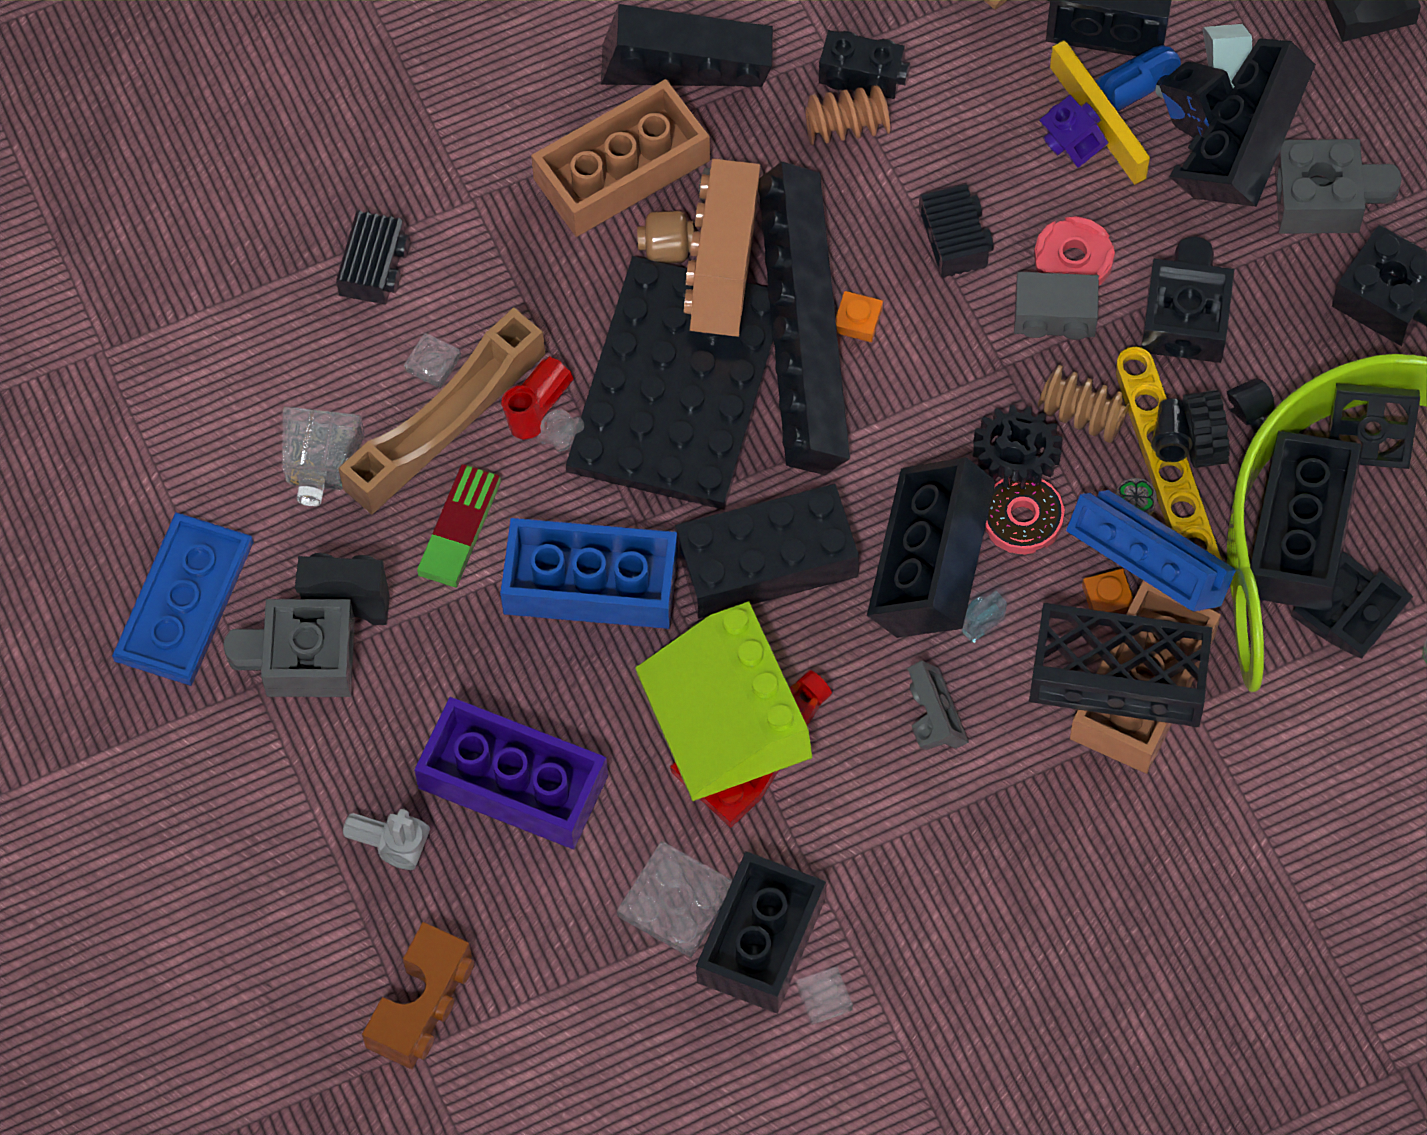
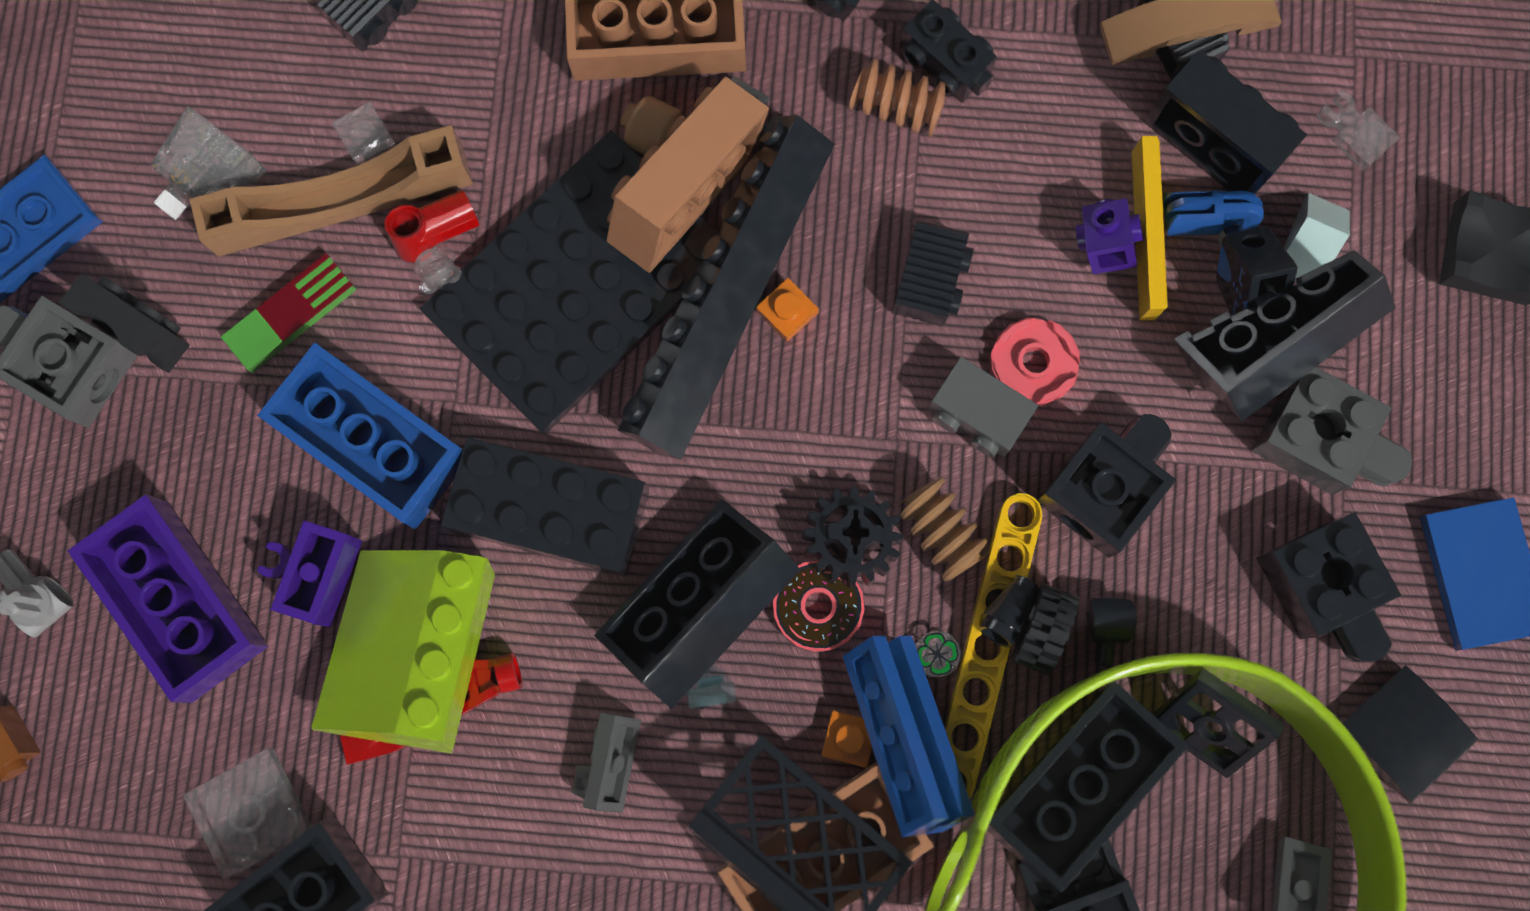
camera: 30 degrees right, 15 degrees up
(614, 692) = (312, 573): none -> dark purple brick

